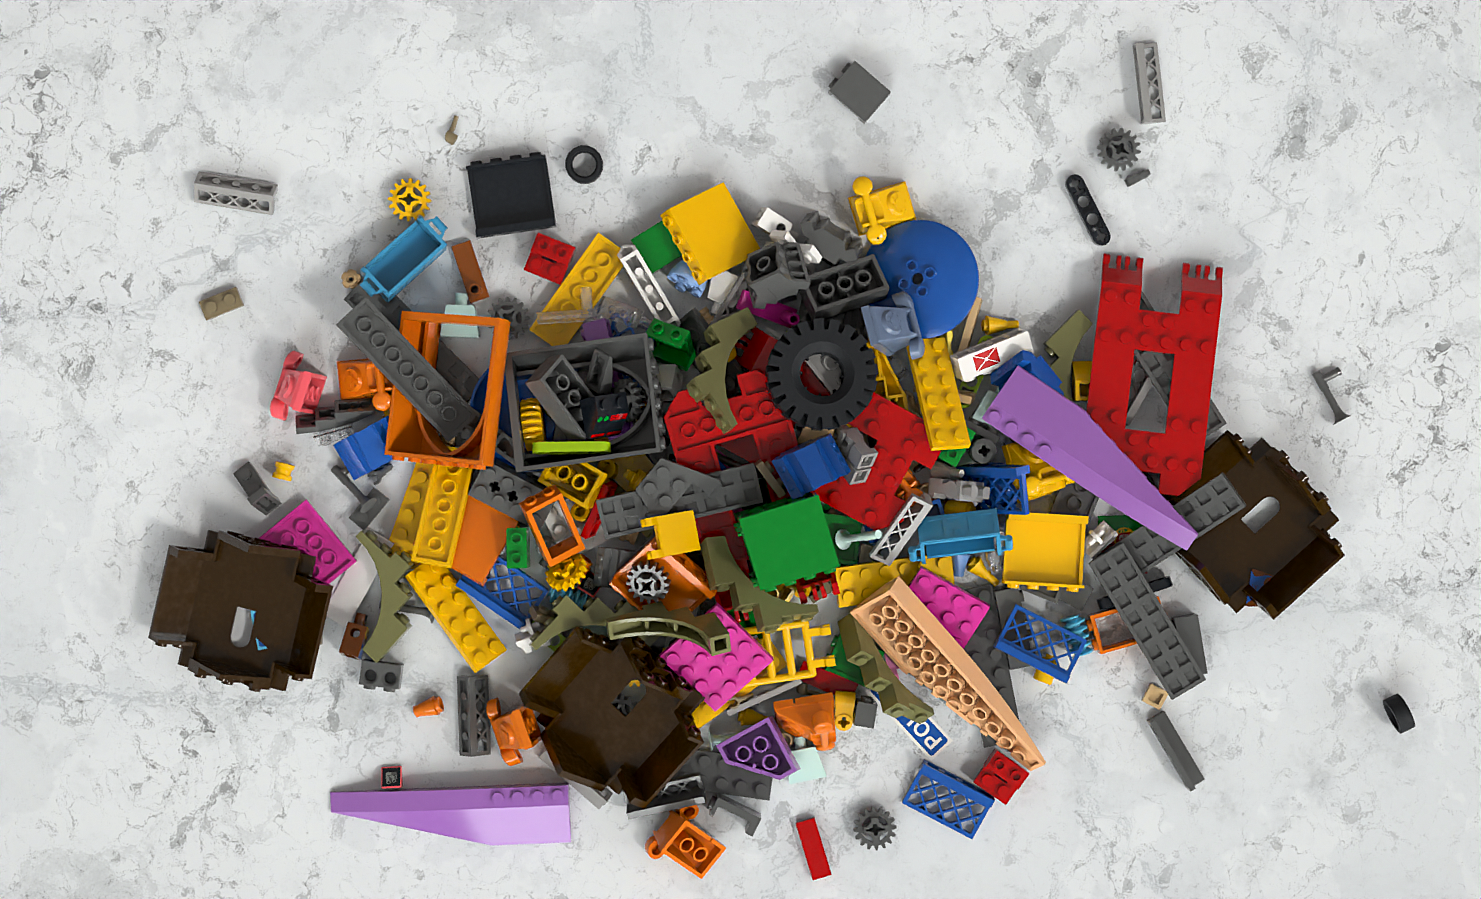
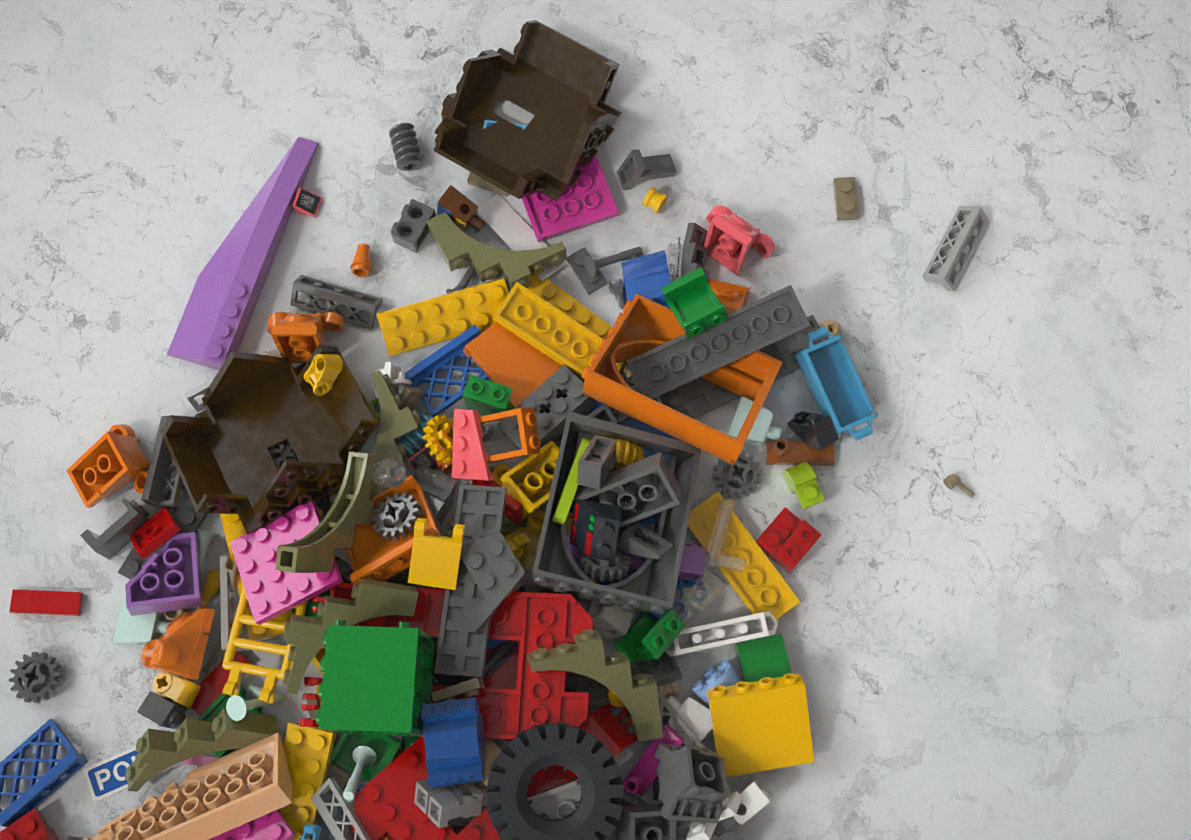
camera: 110 degrees right, 15 degrees down
(310, 710) = (405, 147): none -> dark grey piece
(380, 400) = (694, 303): none -> green panel
(409, 209) = (905, 417): yellow gear -> none
(448, 266) = (813, 429): none -> black slope
(497, 261) = (803, 483): none -> lime brick
(511, 195) = (869, 524): black panel -> none
(545, 693) = (323, 372): none -> yellow piece
(551, 432) = (597, 462): none -> dark grey brick
(569, 164) = (892, 600): black tyre -> none
(571, 546) = (469, 457): none -> coral wing
(614, 602) = (389, 472): none -> clear head
(728, 779) = (154, 533): none -> red tile
(842, 648) = (237, 707): none -> light aqua piece

